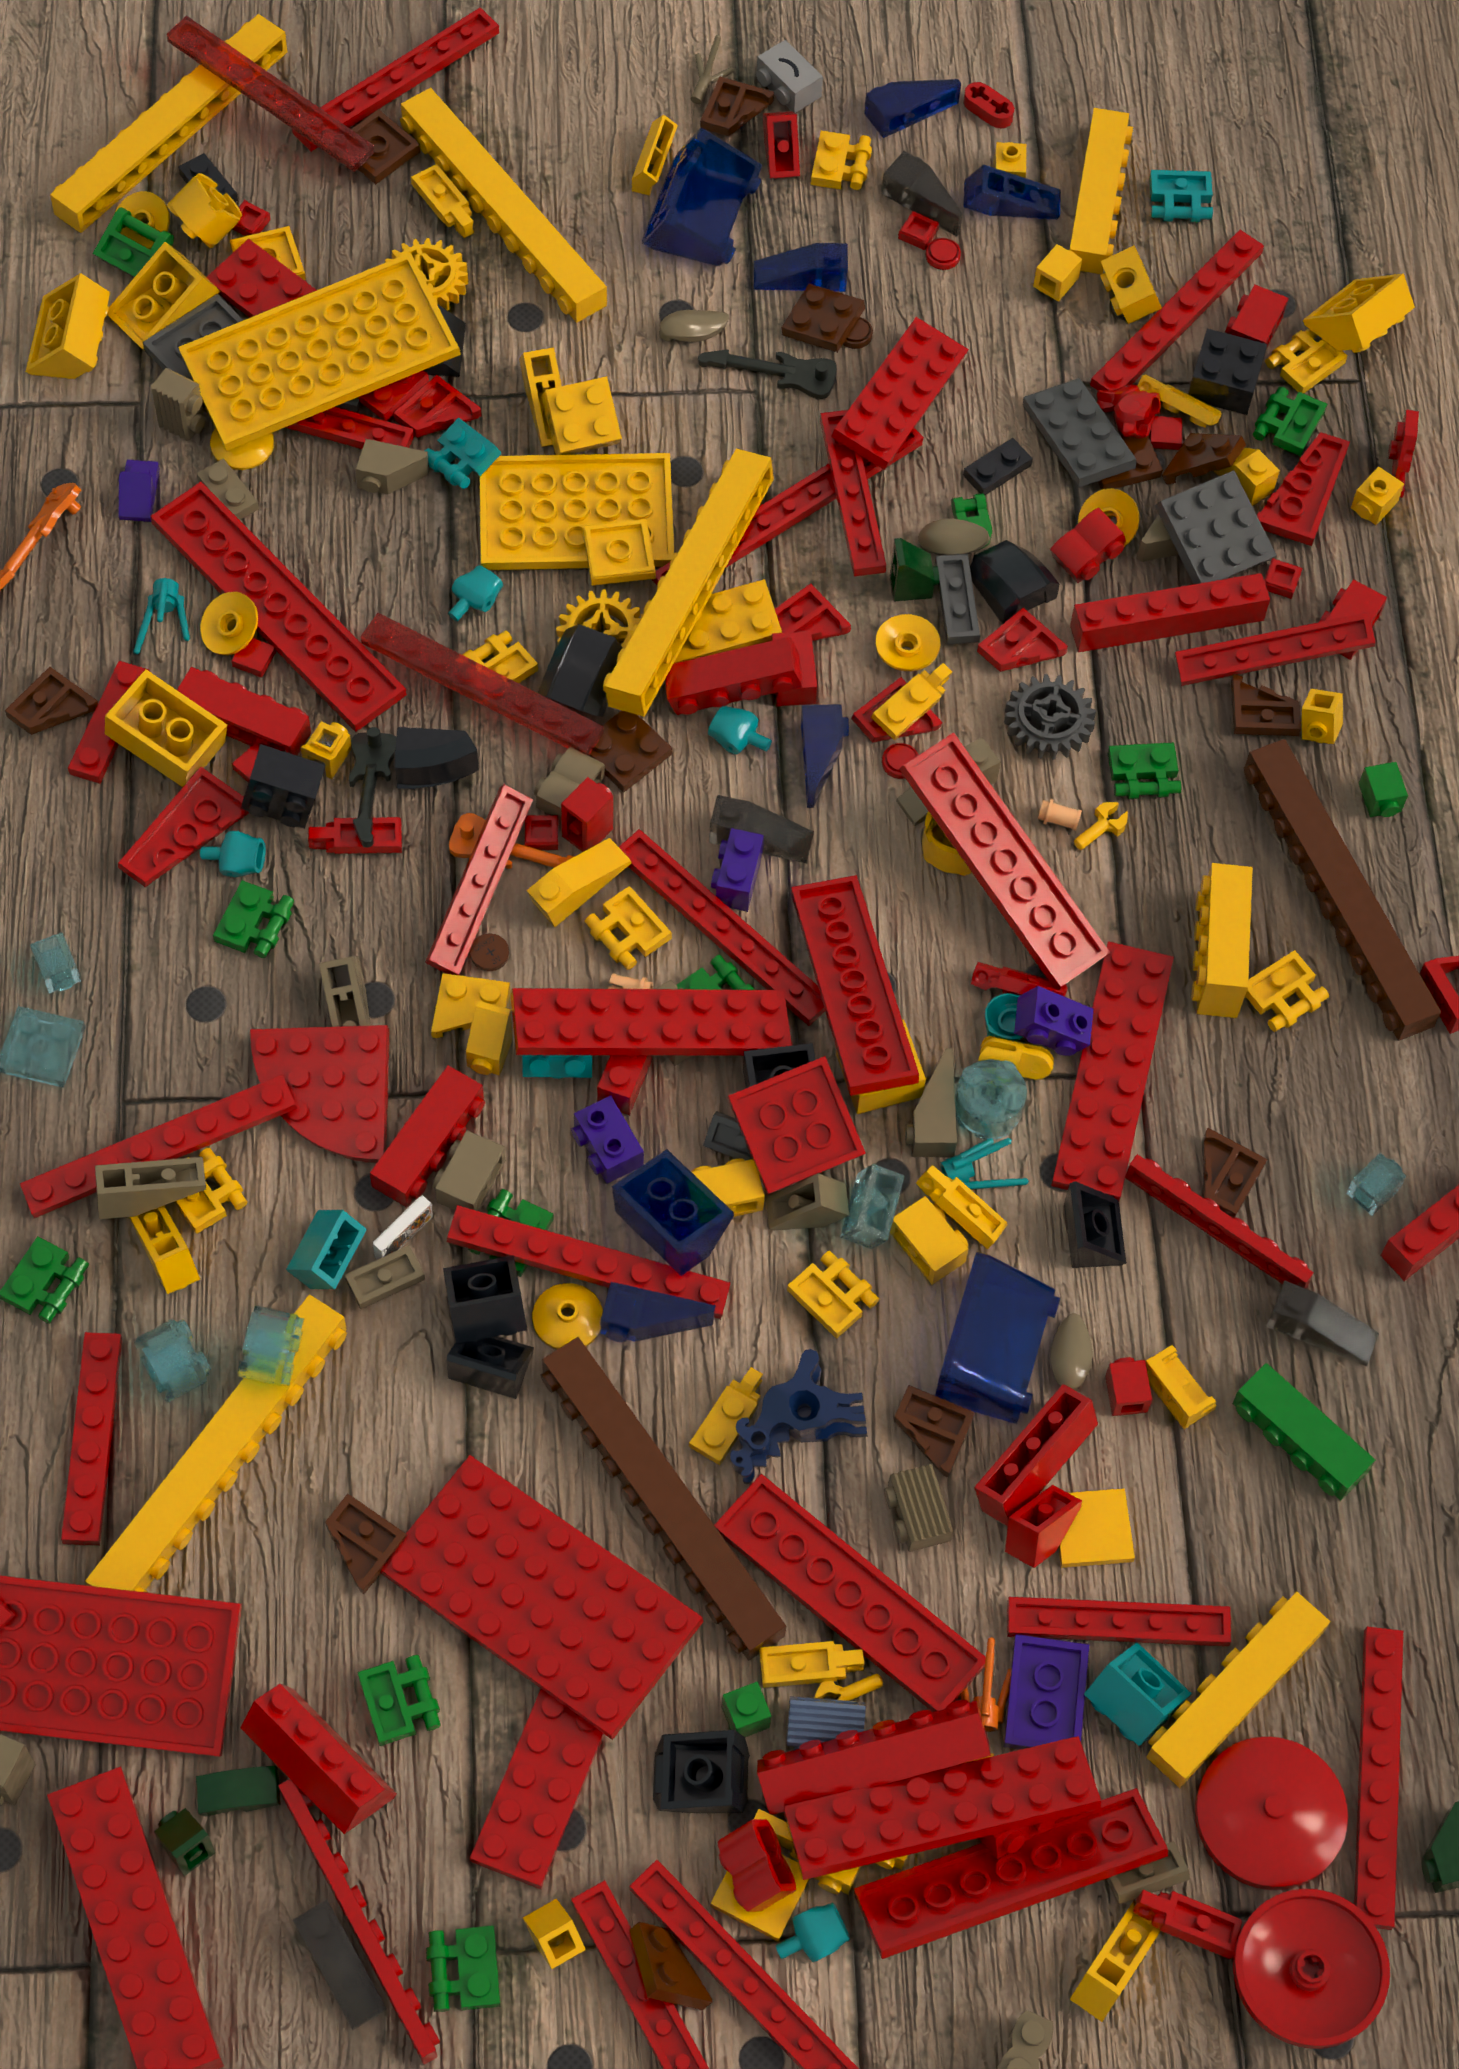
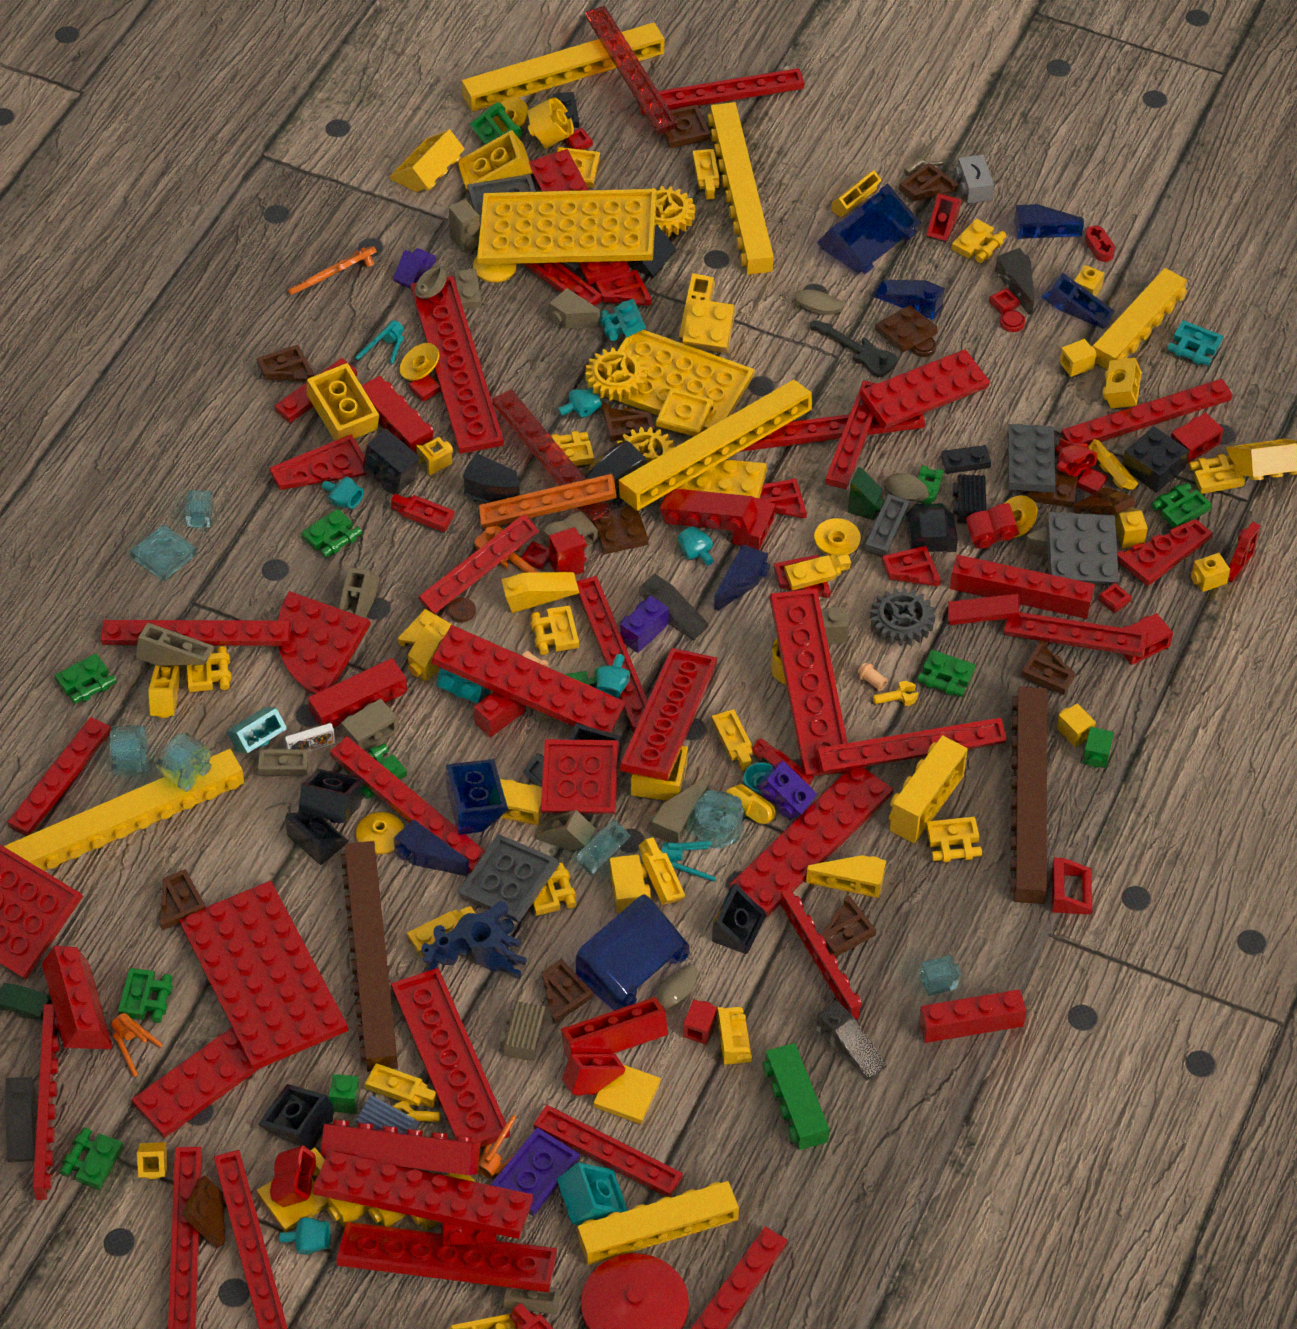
camera: 30 degrees right, 10 degrees down
(181, 504) = (431, 282): none -> dark tan arm
(373, 756) = (451, 476): pearl dark grey piece -> none
(404, 1758) = (127, 1029): none -> orange plant
(483, 531) = (617, 379): none -> yellow gear
(521, 753) = (548, 501): none -> orange plate
(547, 595) = (623, 421): none -> reddish brown wing
(607, 1139) = (465, 739): dark purple brick -> none
(749, 965) = (613, 678): none -> teal piece
(779, 1305) = (509, 875): none -> dark grey plate
(940, 976) = (733, 737): none -> yellow hinge
(1037, 518) = (970, 496): none -> black brick
(1143, 663) = (983, 609): none -> red tile
(1164, 890) = (908, 745): none -> red plate
(1200, 1095) = (853, 874): none -> yellow slope
(1322, 716) = (1082, 686): yellow brick -> none
(1339, 770) = (1075, 724): none -> yellow brick

